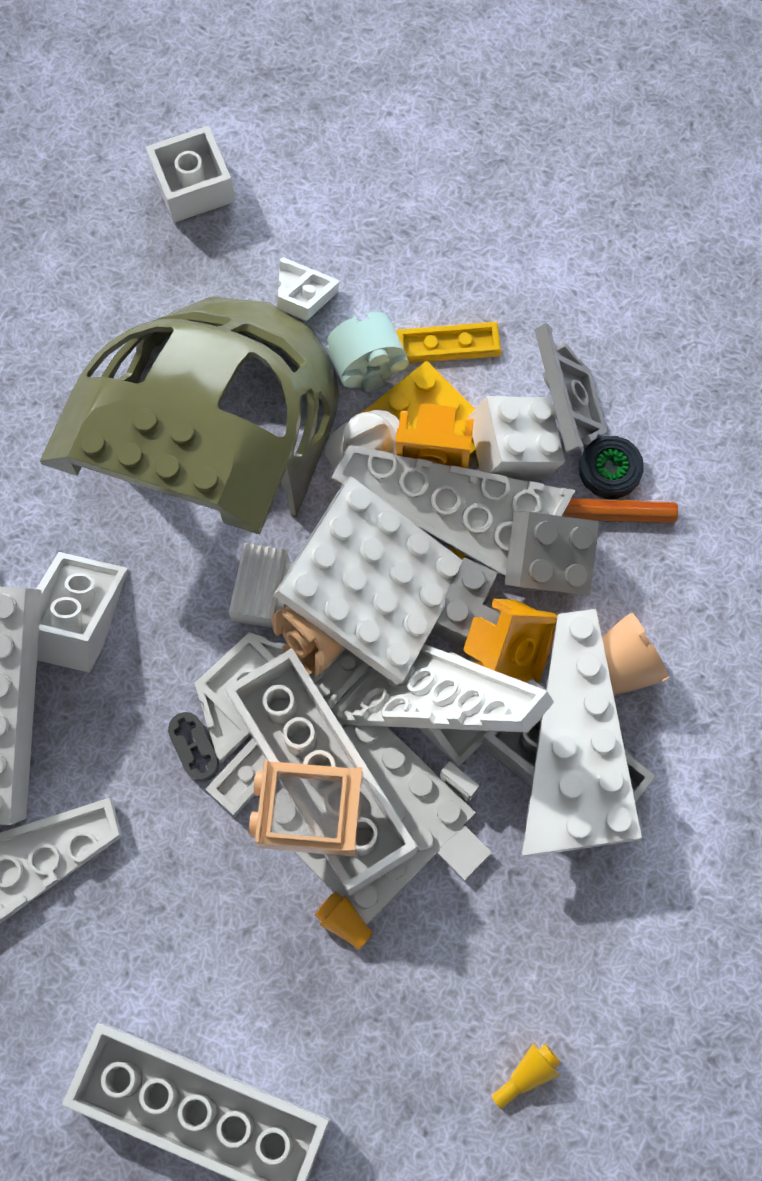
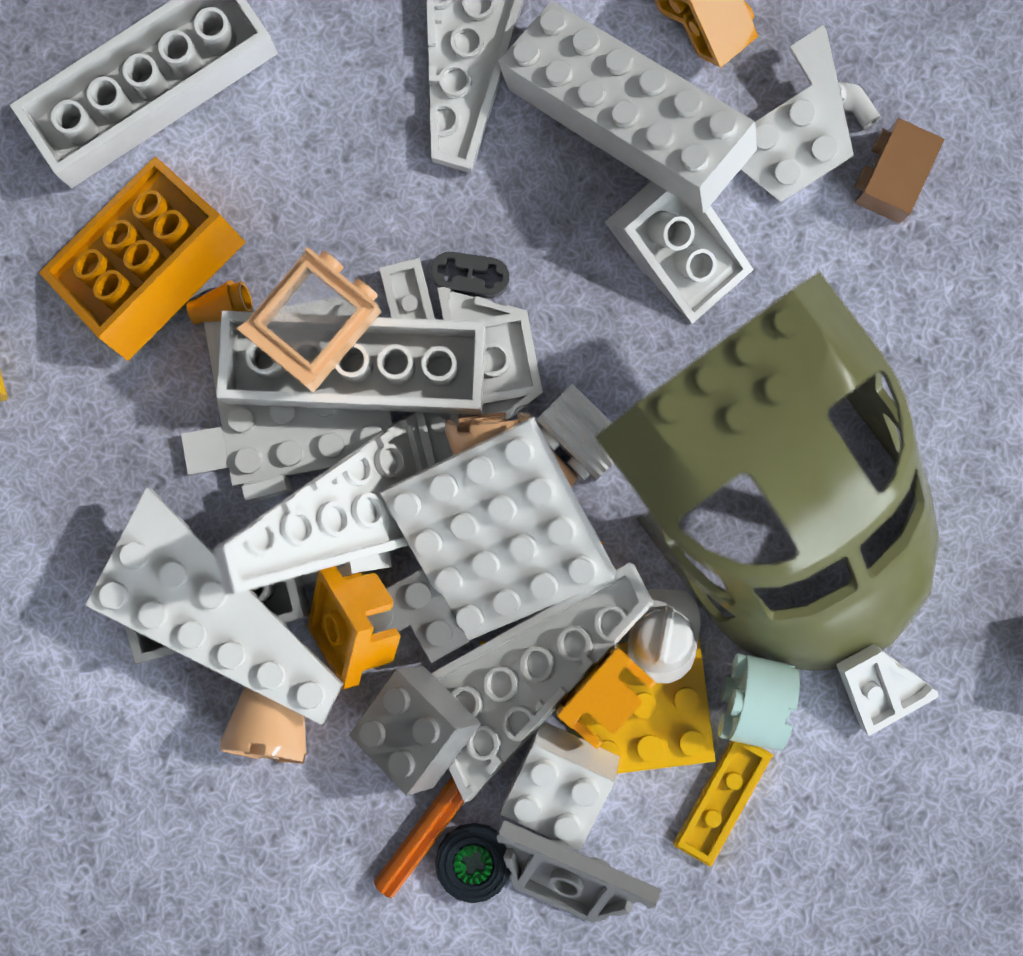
camera: 125 degrees right, 15 degrees up
(347, 1014) = (141, 258): none -> light orange slope

